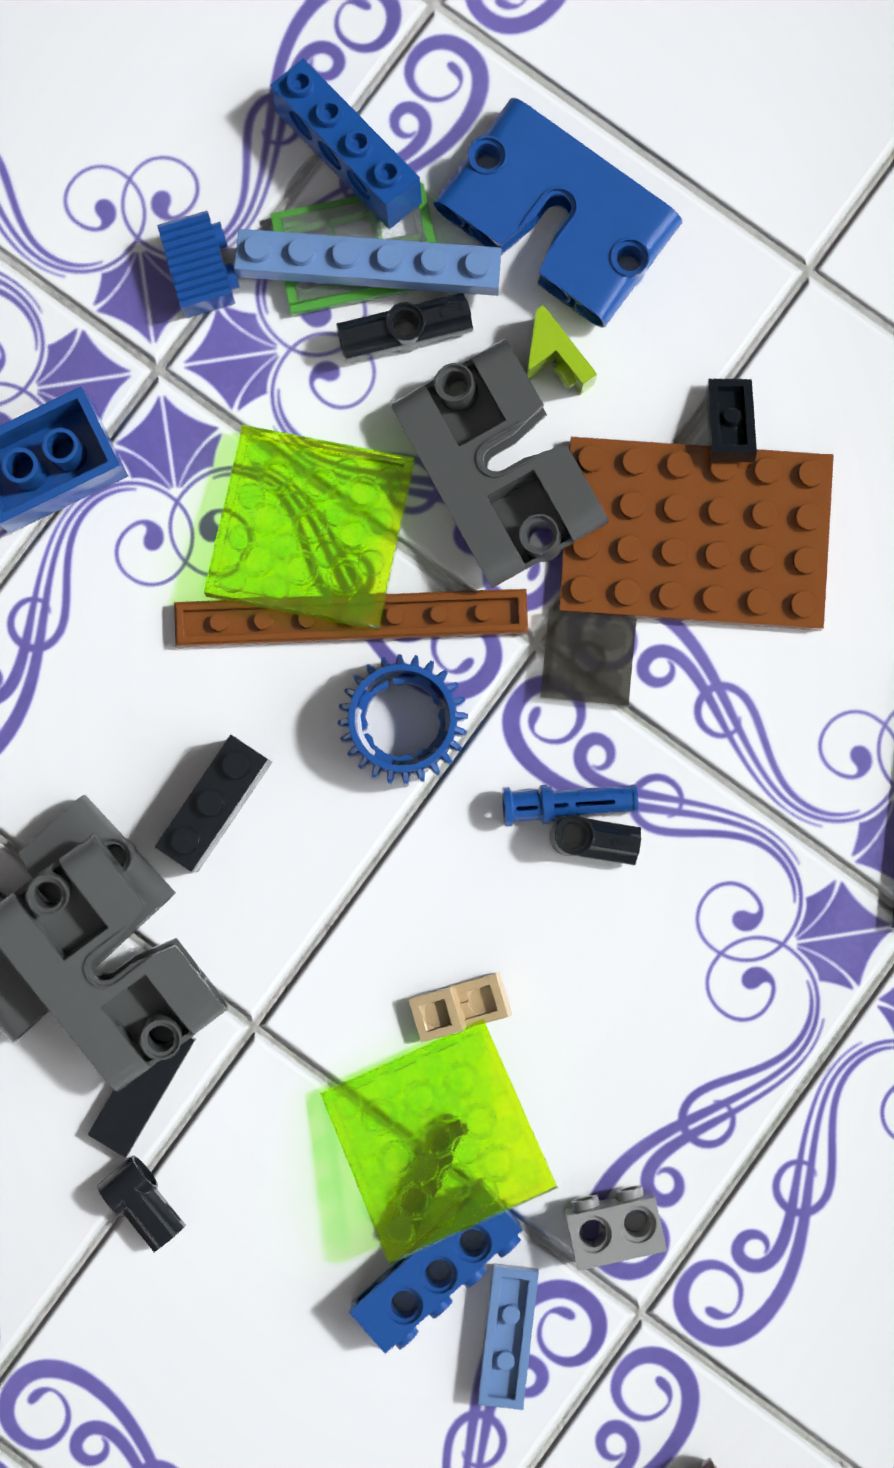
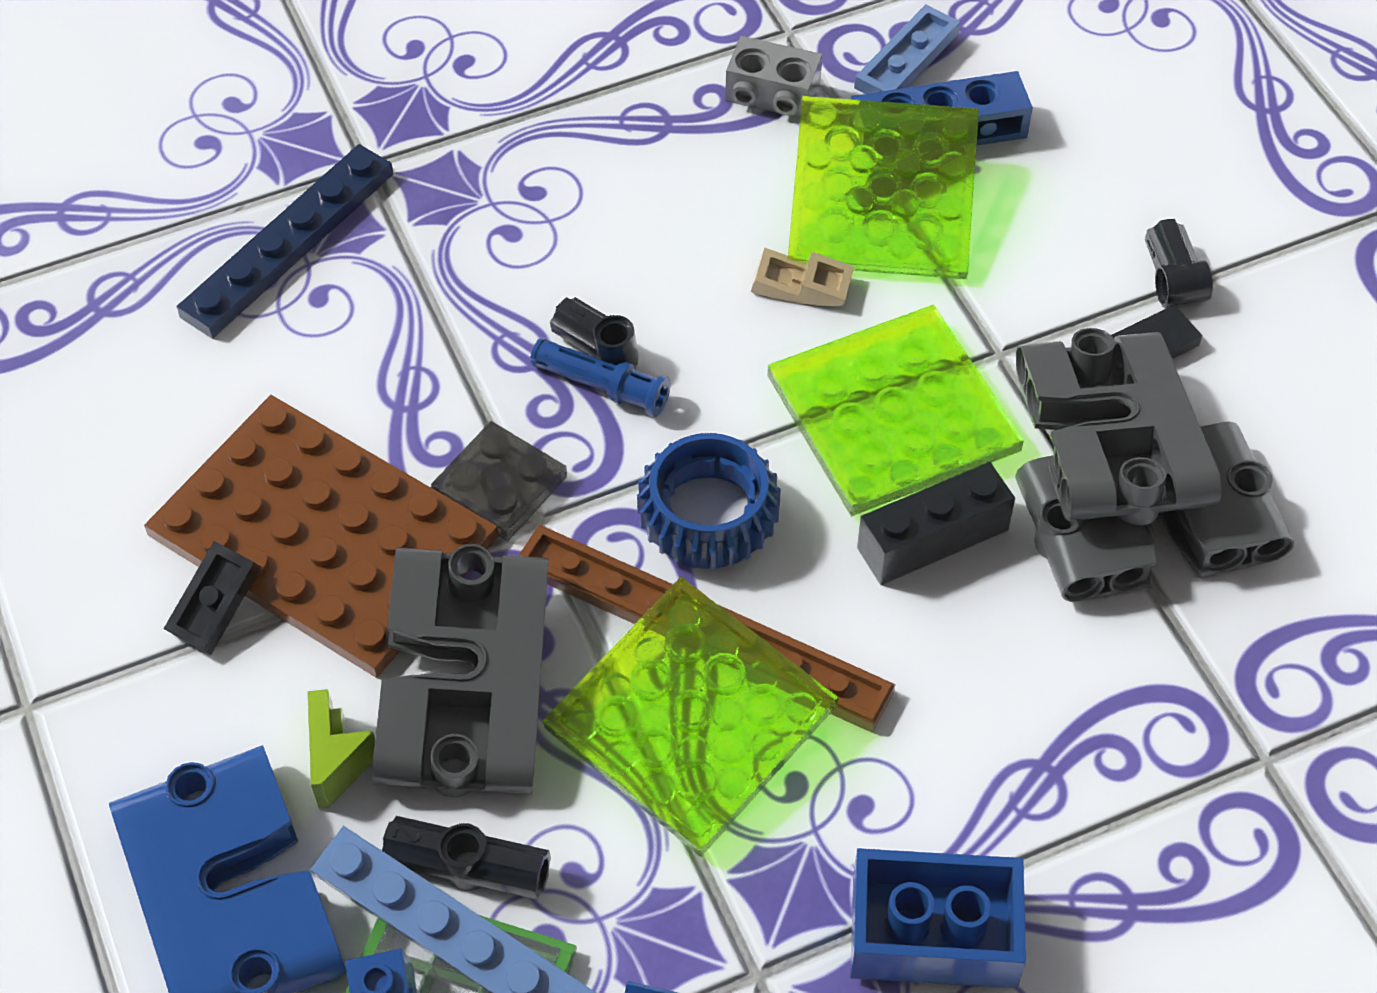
camera: 150 degrees left, 30 degrees down
(308, 908) = (893, 409): none -> clear neon green plate

